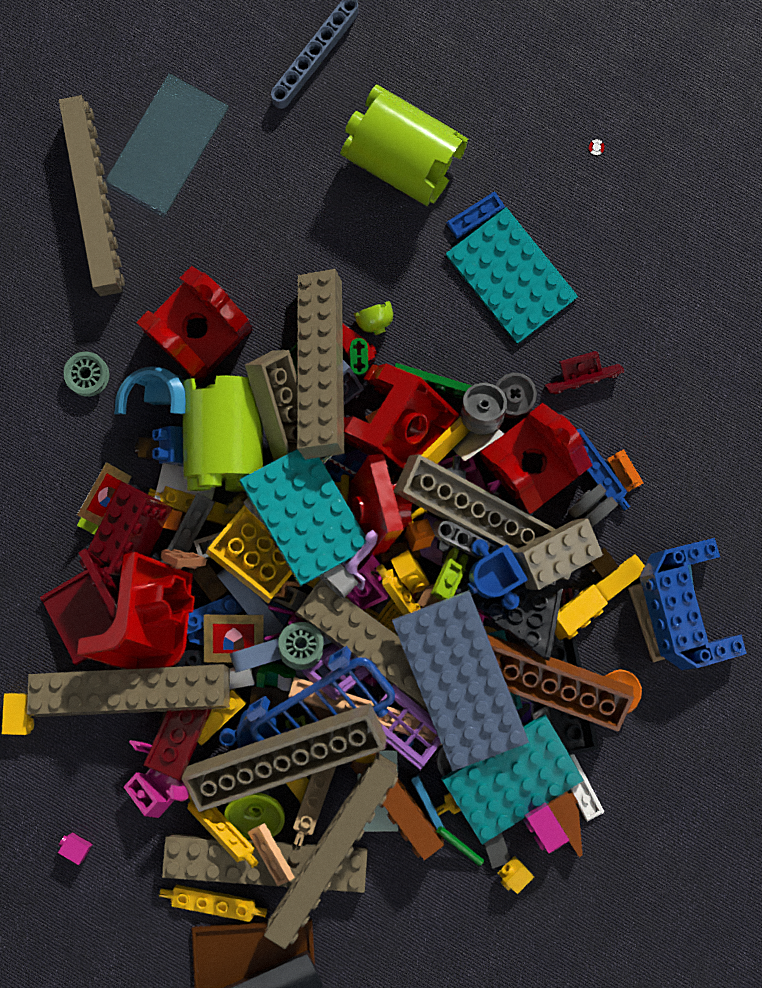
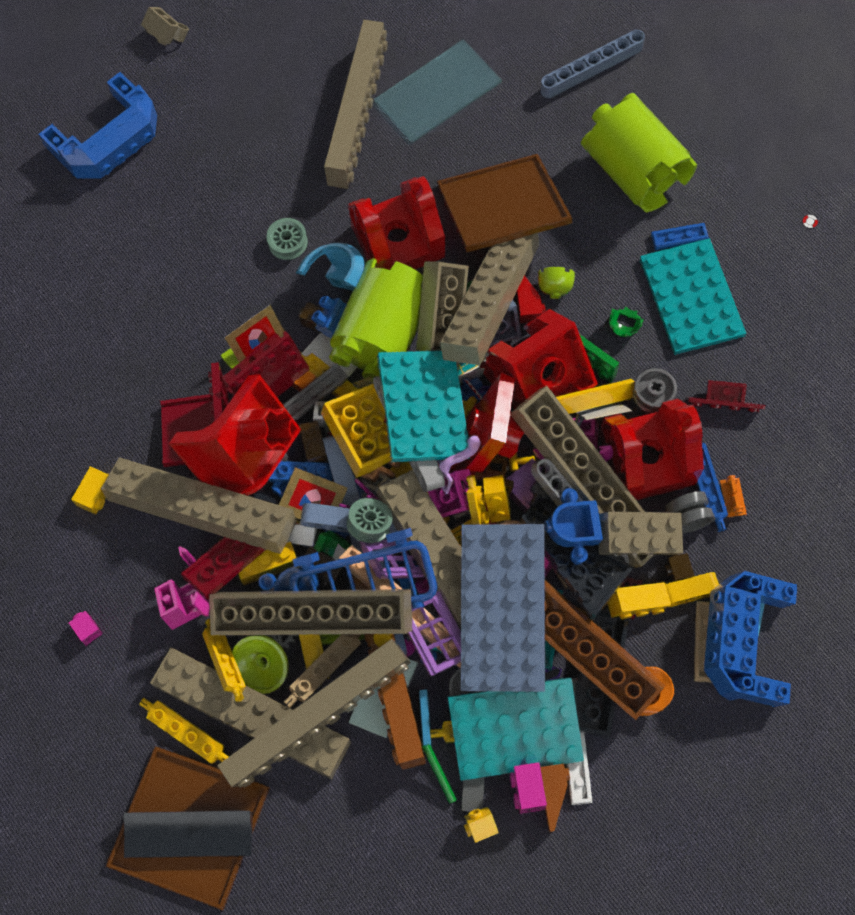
camera: 25 degrees right, 15 degrees down
(179, 559) = (294, 407): nougat hinge -> none
(271, 854) = (258, 699): light nougat plate -> none
(289, 252) = (503, 202): none -> reddish brown tile
(364, 356) = (530, 307): green beam -> none
(419, 534) = (518, 468): orange brick -> none
(450, 575) = (532, 512): lime hinge -> none
(459, 341) = (622, 330): none -> green helmet
(483, 408) = (622, 383): dark grey wheel -> none

